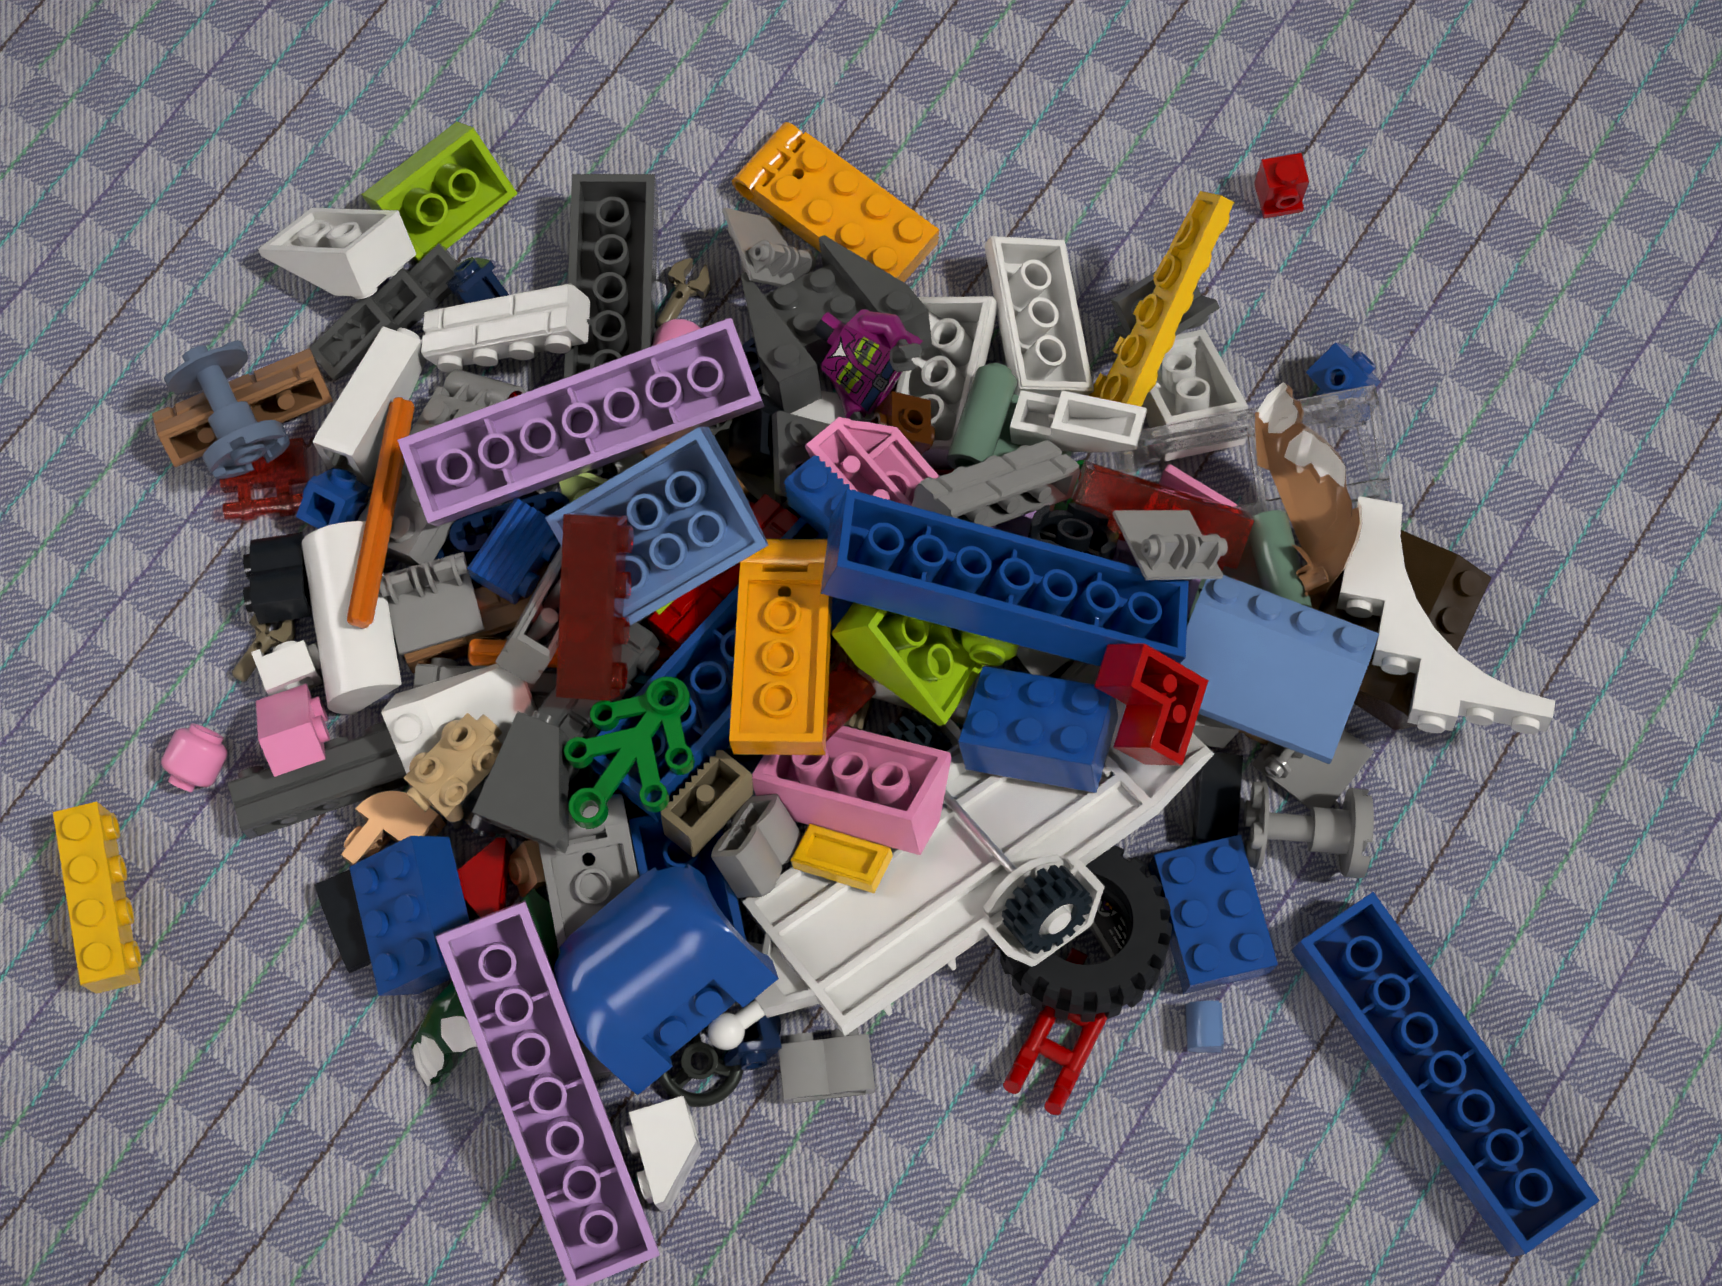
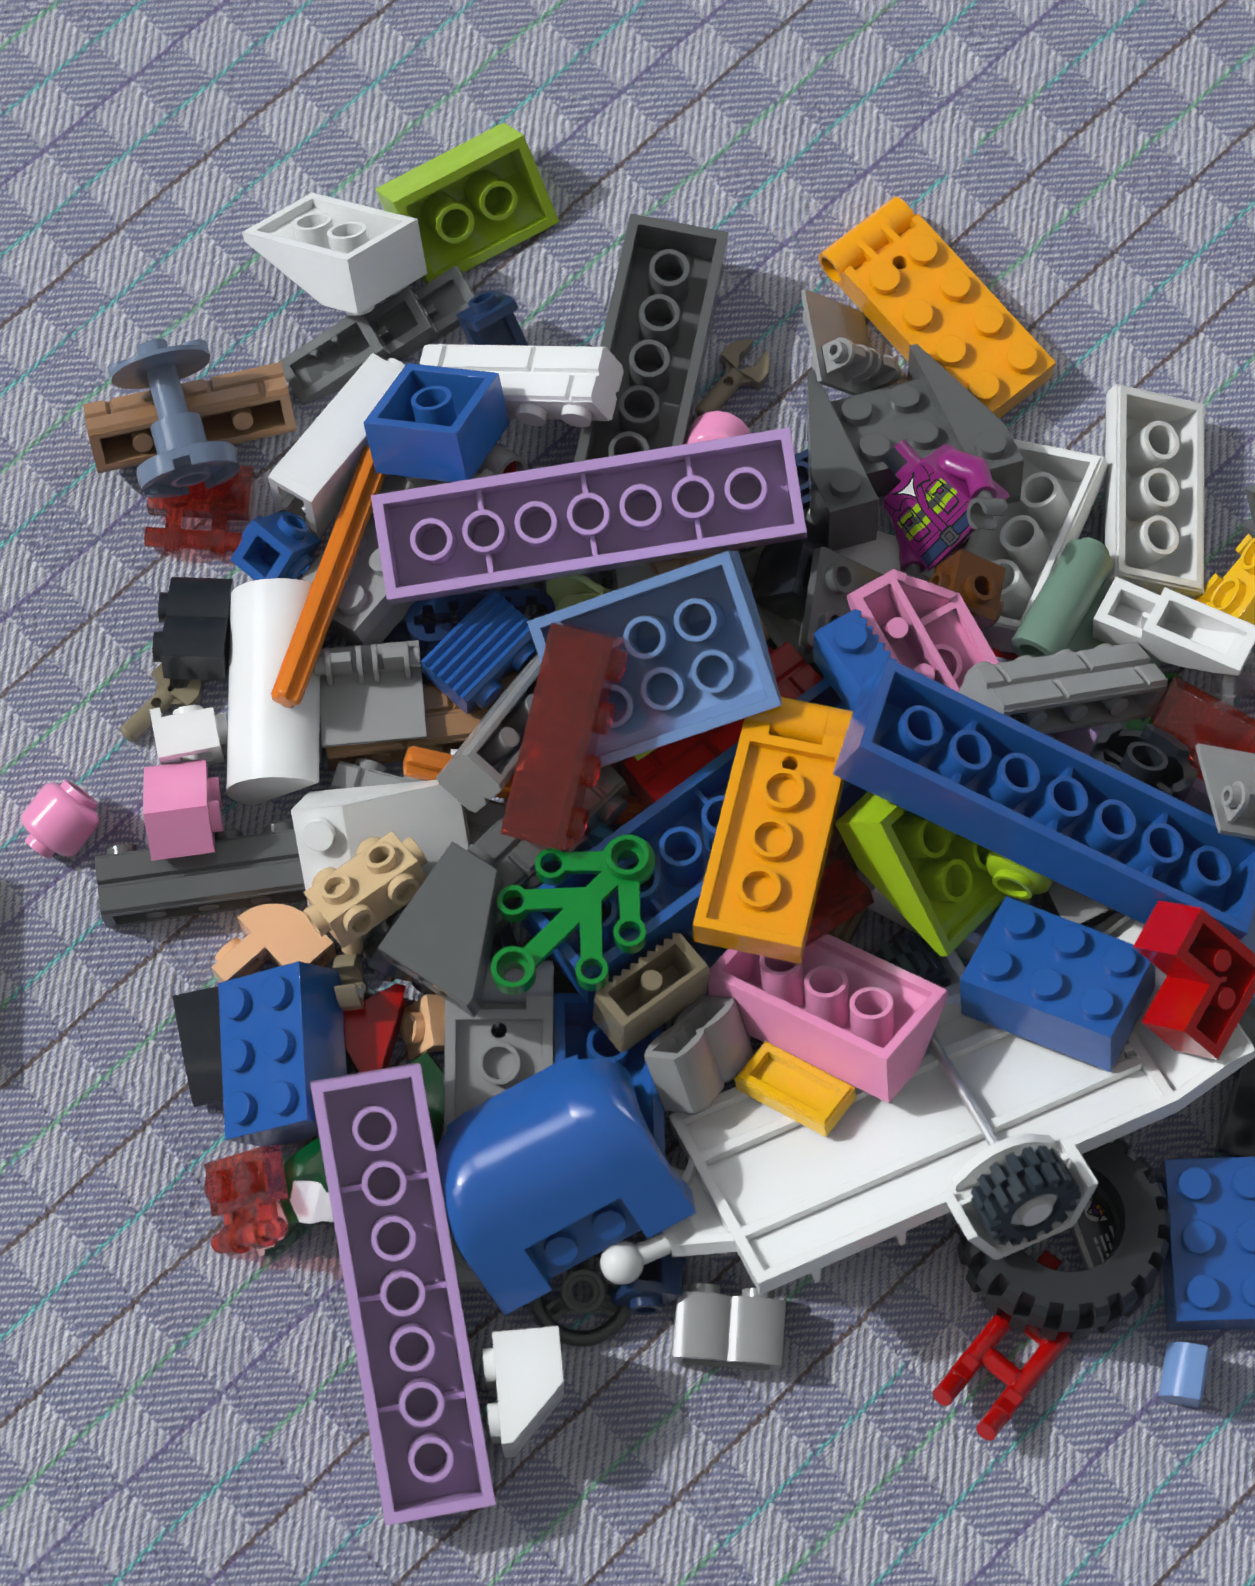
camera: 10 degrees right, 0 degrees up
(404, 1037) = (246, 1194): none -> clear red plate
(443, 371) = (436, 423): none -> blue brick
(462, 848) = (353, 988): none -> dark tan bar

